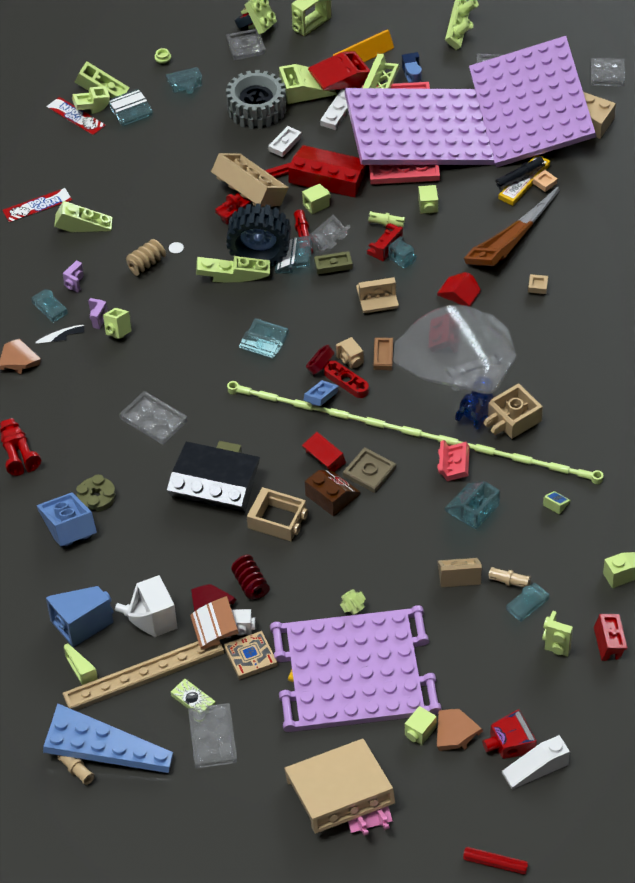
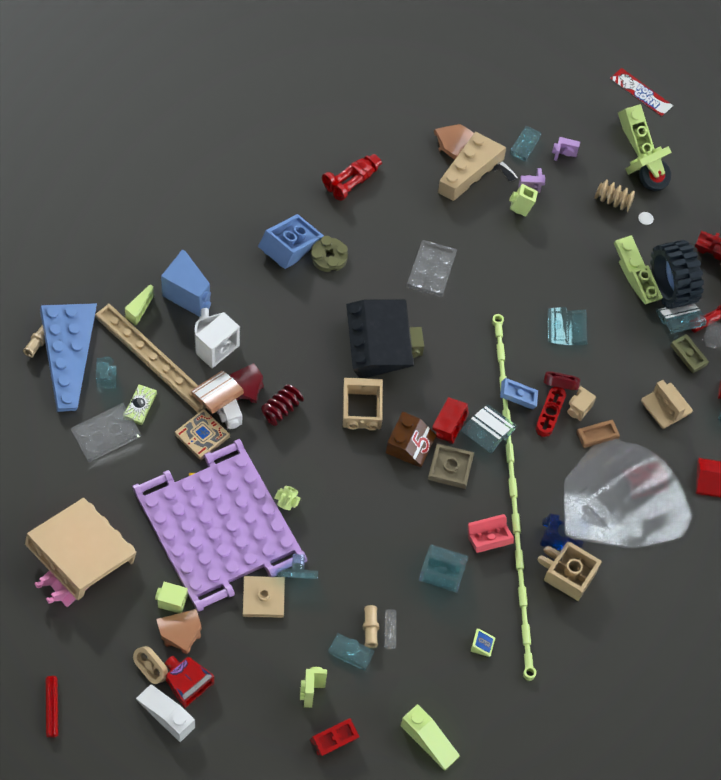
camera: 60 degrees right, 10 degrees up
(53, 347) = (473, 161): none -> tan wedge
(130, 220) = (653, 171): none -> plate
(144, 716) = (106, 373): none -> clear light blue brick
(346, 427) = (488, 428): none -> clear light blue slope
(432, 615) = (297, 569): none -> clear light blue tile
(446, 653) = (263, 596): none -> tan plate
(459, 572) = (362, 578): tan slope -> none
(483, 763) = (150, 666): none -> tan plate
(516, 564) = (390, 629): none -> clear axle

